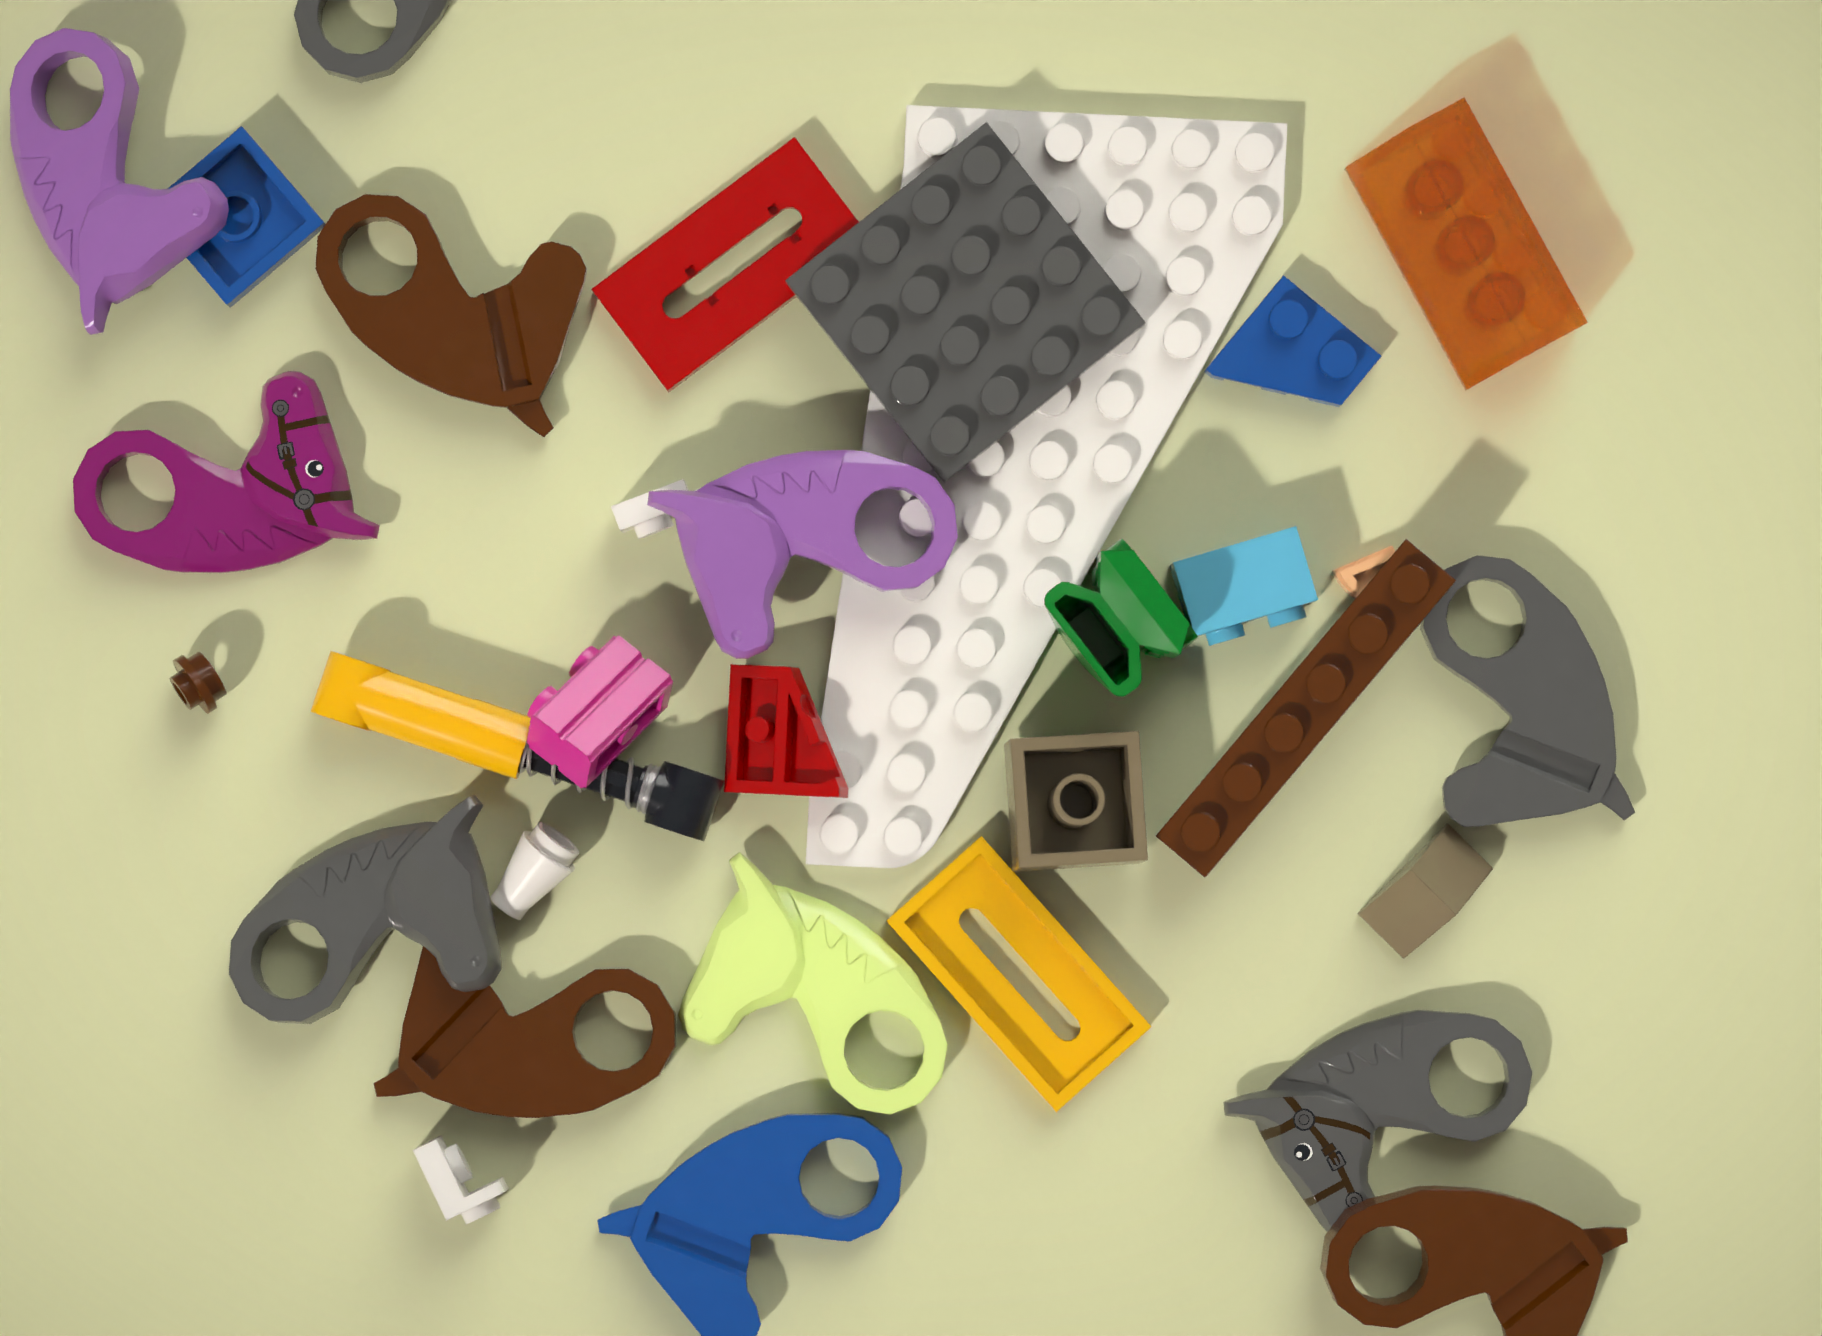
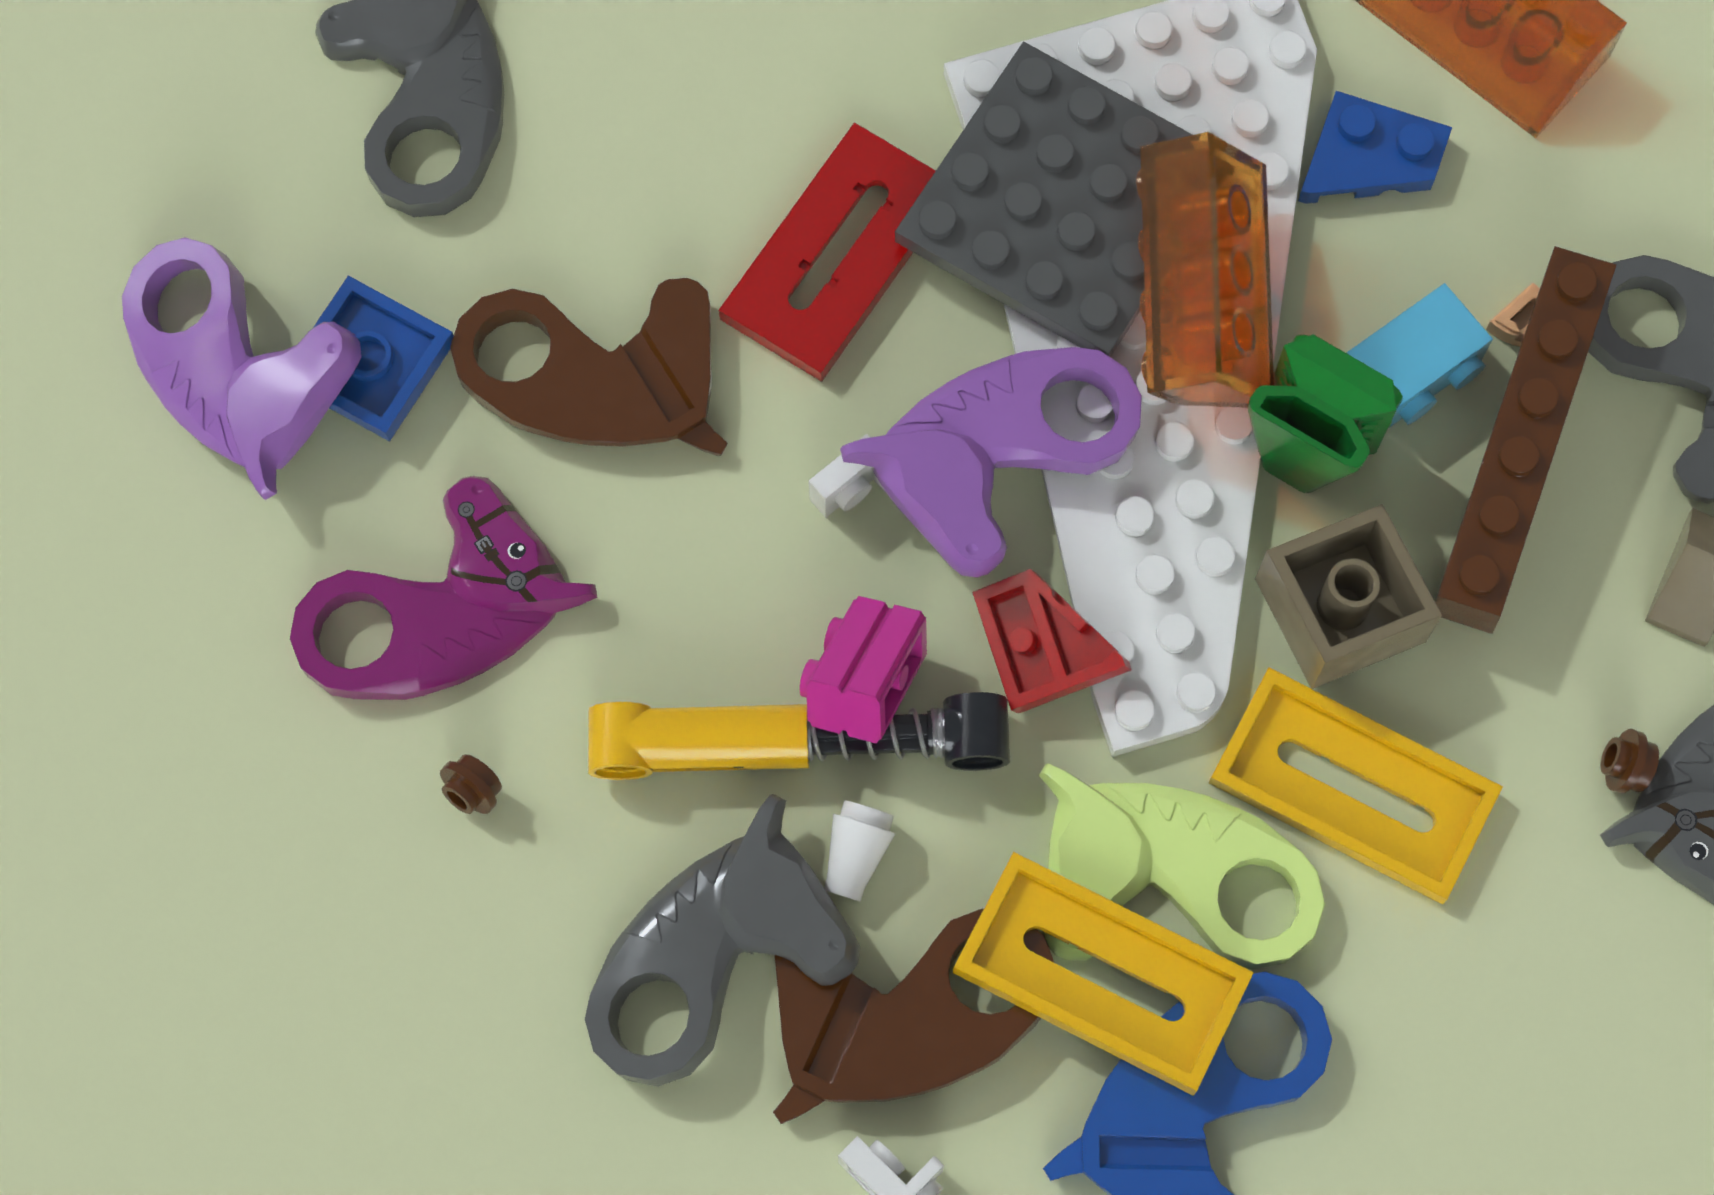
camera: 15 degrees left, 15 degrees down
(626, 1031) = (1043, 900): none -> yellow piece
(1062, 445) = (1205, 272): none -> clear orange slope
(1277, 1046) = (1629, 762): none -> reddish brown plate

